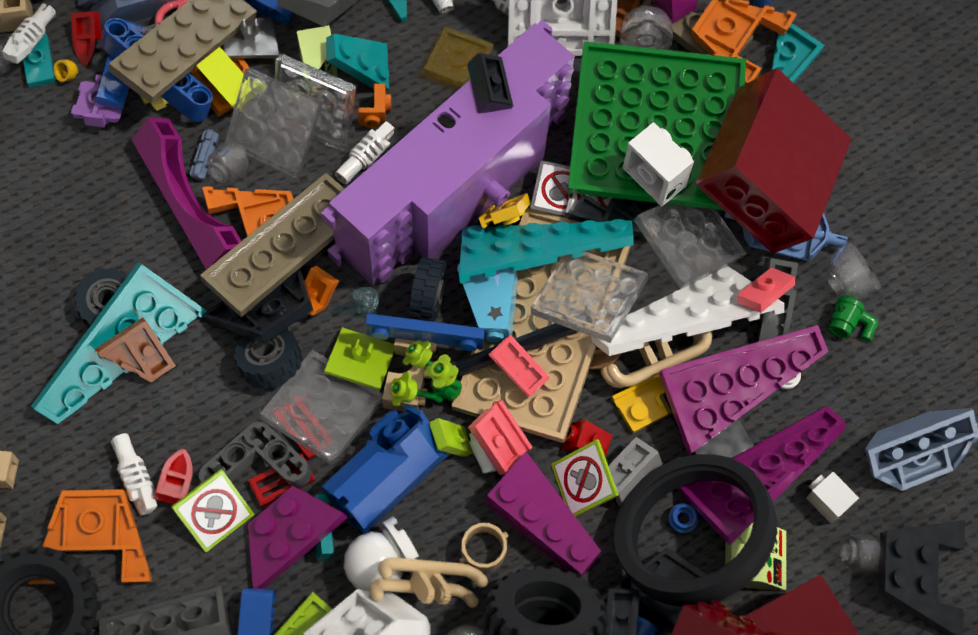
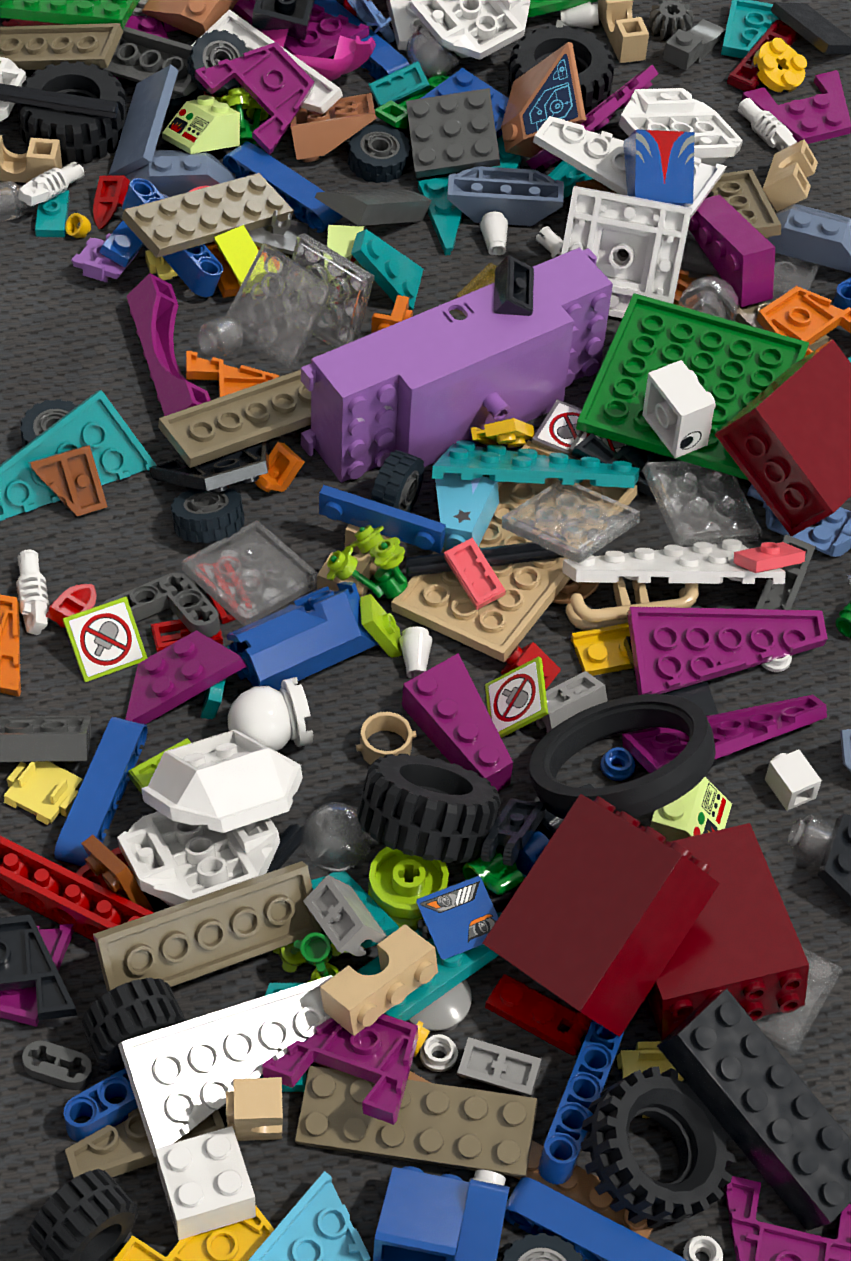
camera: 15 degrees right, 15 degrees down
(209, 139) = (189, 339): sand blue axle -> none
(360, 359) = (305, 540): lime piece -> none
(366, 300) = (322, 478): clear light blue plate -> none
(427, 580) = (312, 744): tan piece -> none
(500, 437) = (433, 632): coral plate -> none

